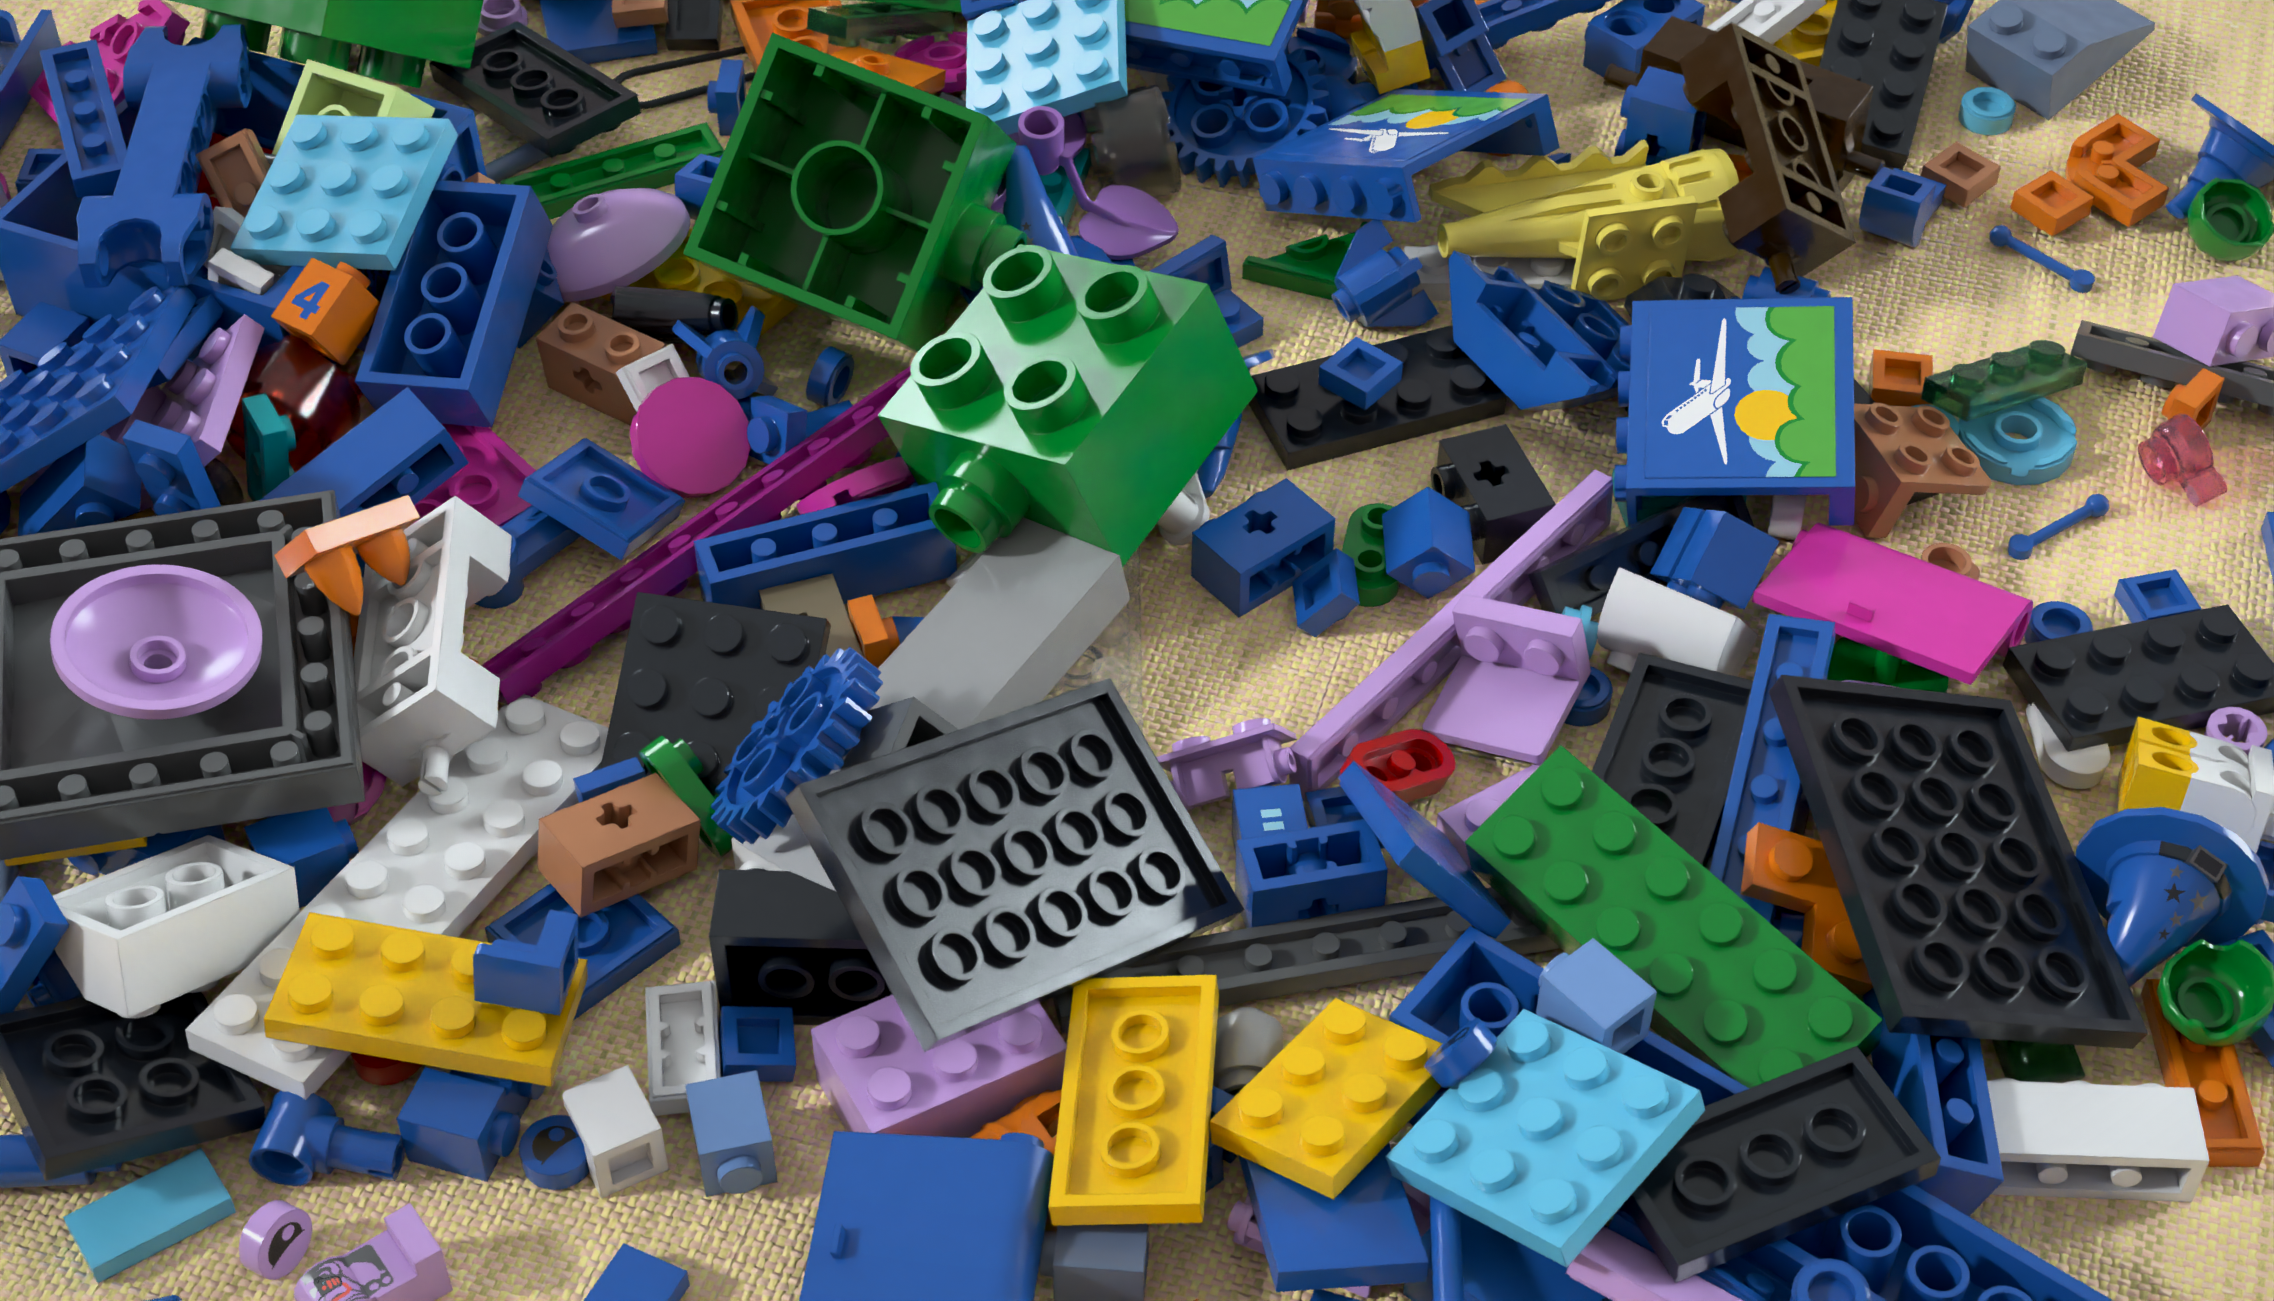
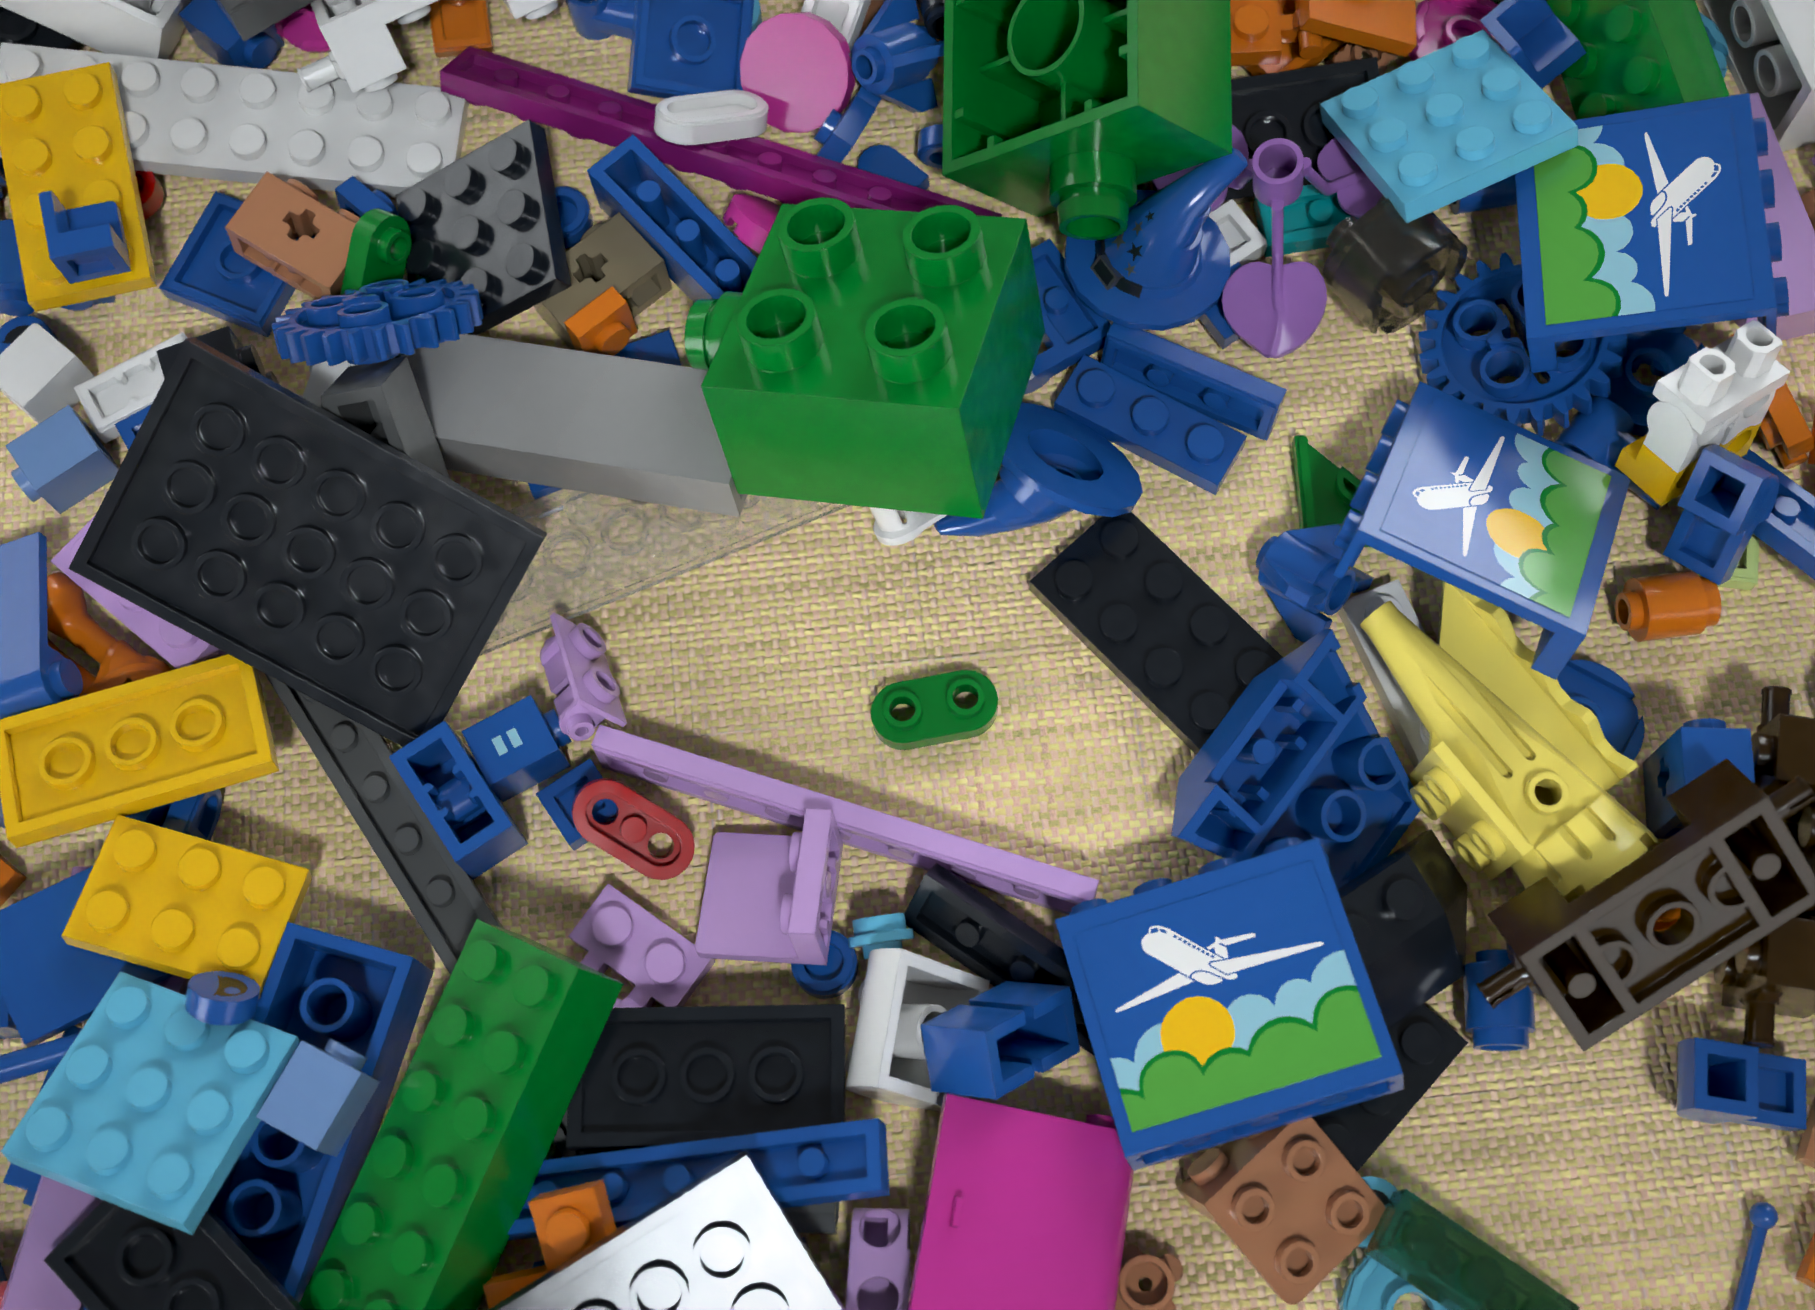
camera: 75 degrees right, 25 degrees up
(698, 504) = (711, 117): none -> white tile
(1244, 1046) = (262, 819): light grey brick -> none
(1261, 546) = (899, 631): blue brick -> none
(1325, 592) = (845, 686): blue plate -> none
(1360, 373) = (1139, 605): blue plate -> none
(1423, 851) = (506, 868): blue tile -> none
(1428, 543) = (932, 756): blue brick -> none
(1493, 483) = (1086, 779): black brick -> none
(1898, 377) = (1432, 1160): orange plate -> none

